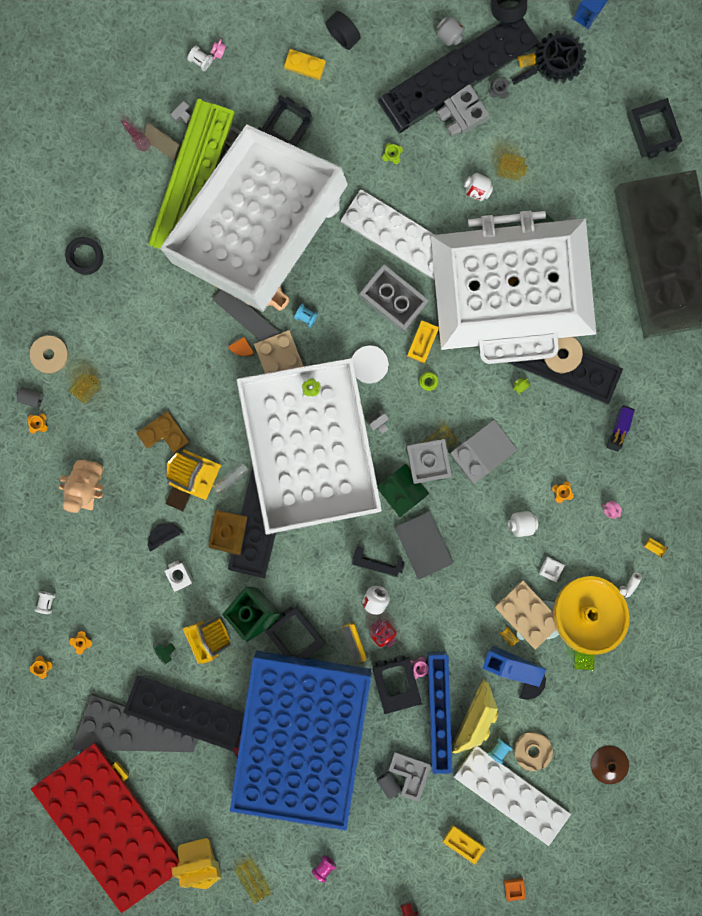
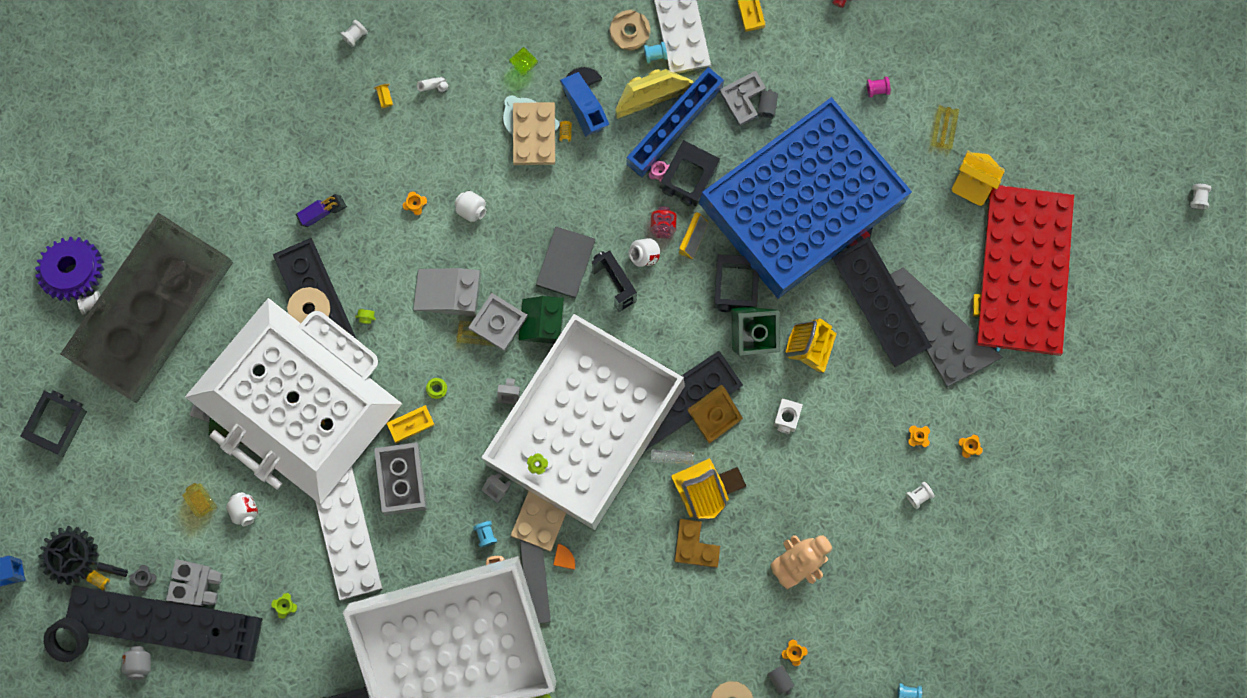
camera: 145 degrees left, 10 degrees down
(85, 388) = (726, 644): clear yellow brick -> none
(162, 534) = (772, 463): black tile -> none
(163, 653) = (856, 365): dark green tile -> none
(327, 350) = (495, 488): none -> light grey tile
(370, 364) = (469, 446): white tile -> none
(551, 569) = (482, 152): white tile -> none
(606, 610) = (482, 72): yellow dish -> none
(612, 509) = (389, 154): bright pink plate -> none

